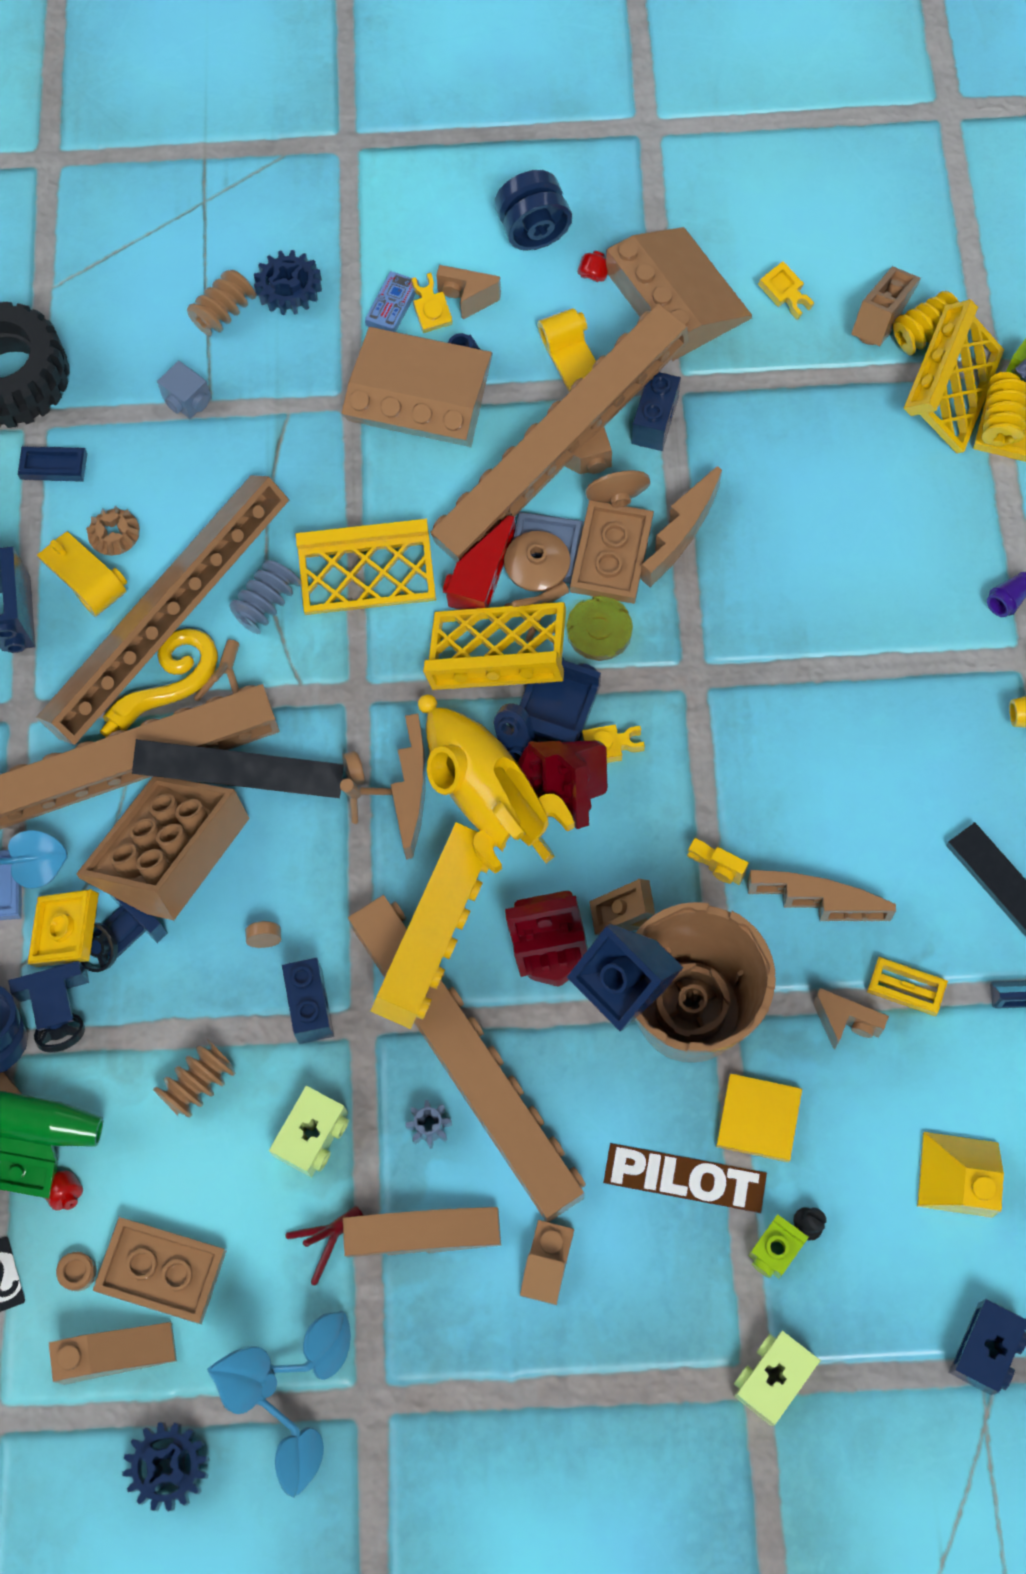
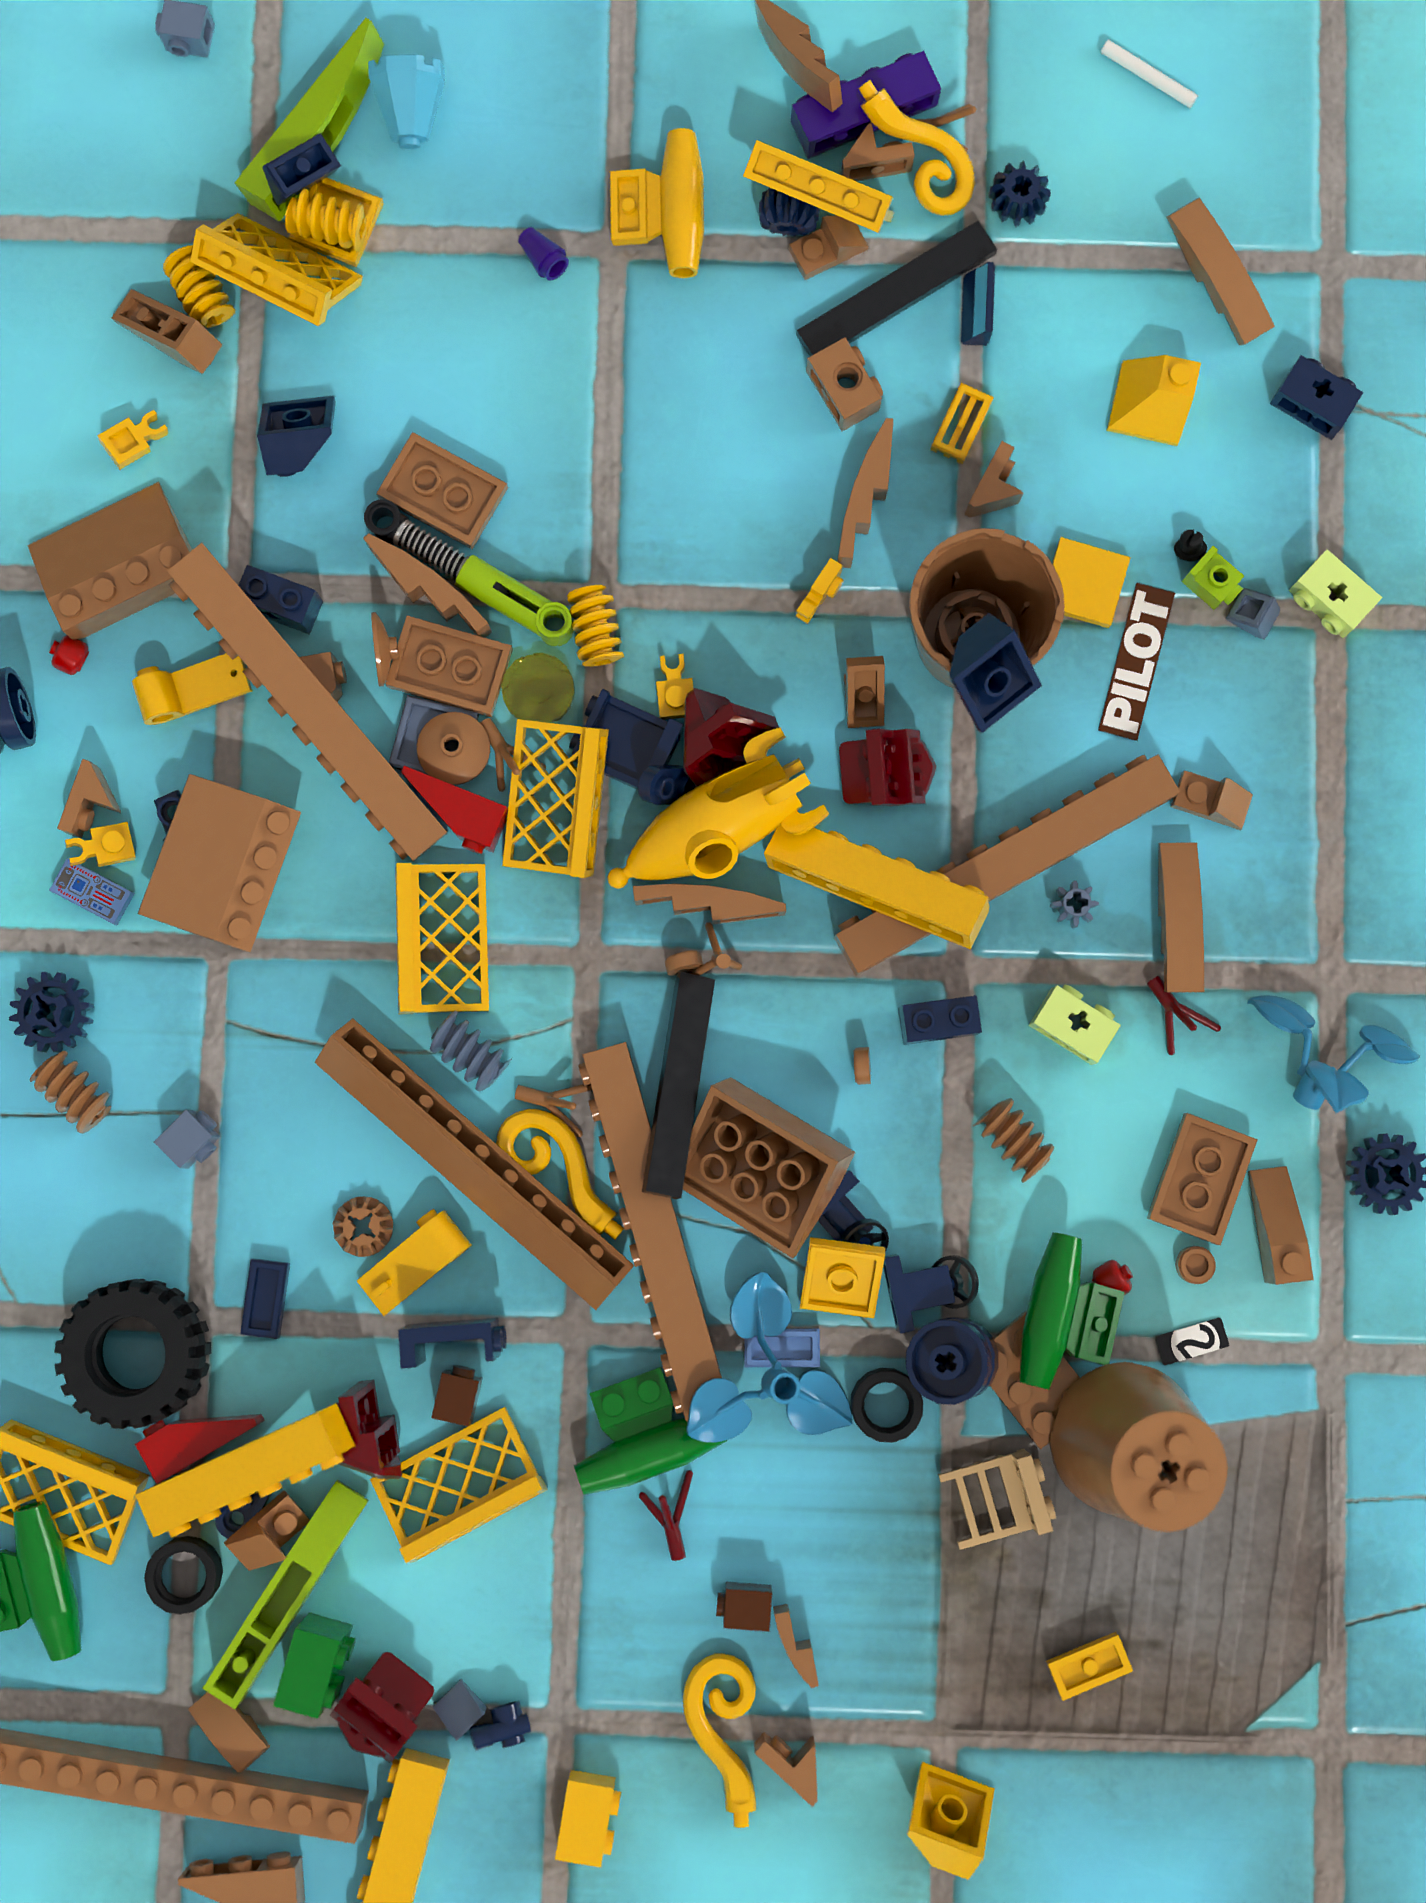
camera: 90 degrees left, 15 degrees up
(660, 664) = (593, 626): none -> yellow piece
(697, 562) = (472, 574): none -> piece
(748, 1296) = (1254, 612): none -> sand blue slope
(773, 531) = (442, 490): none -> medium nougat plate
(808, 405) = (294, 433): none -> dark blue slope
(937, 851) = (845, 404): none -> medium nougat brick

